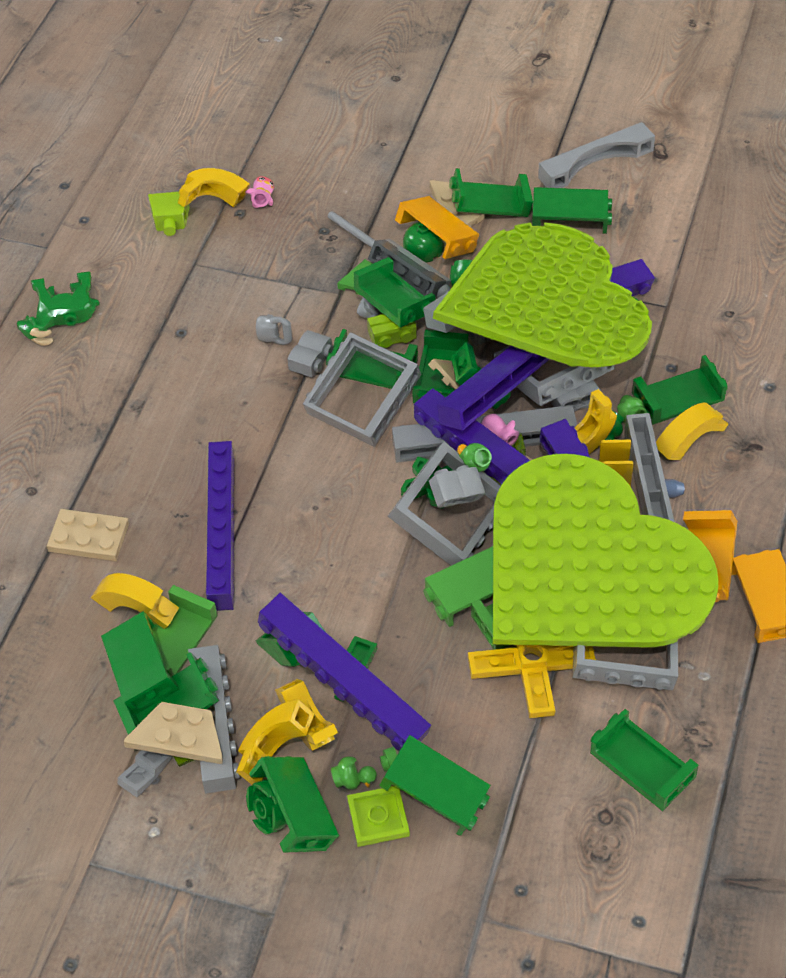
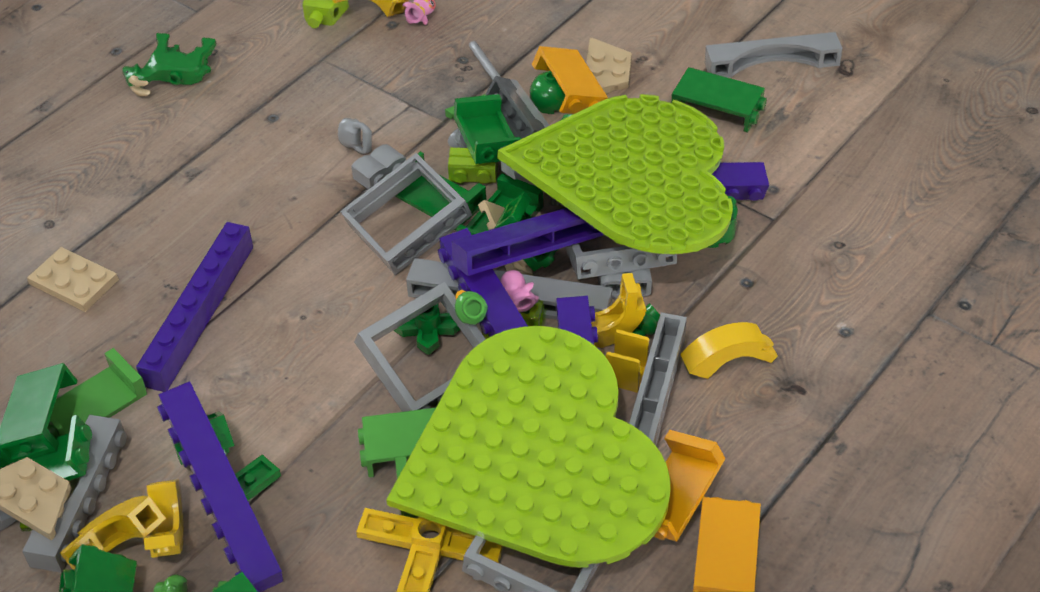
camera: 20 degrees right, 5 degrees down
(135, 593) = (75, 349): yellow arch -> none
(456, 486) = (435, 331): light grey brick -> none
(491, 198) = (640, 67): green panel -> none
(630, 405) = (677, 306): bright green animal -> none
(674, 488) = (679, 405): sand blue hose -> none
(676, 394) = (765, 308): green panel -> none

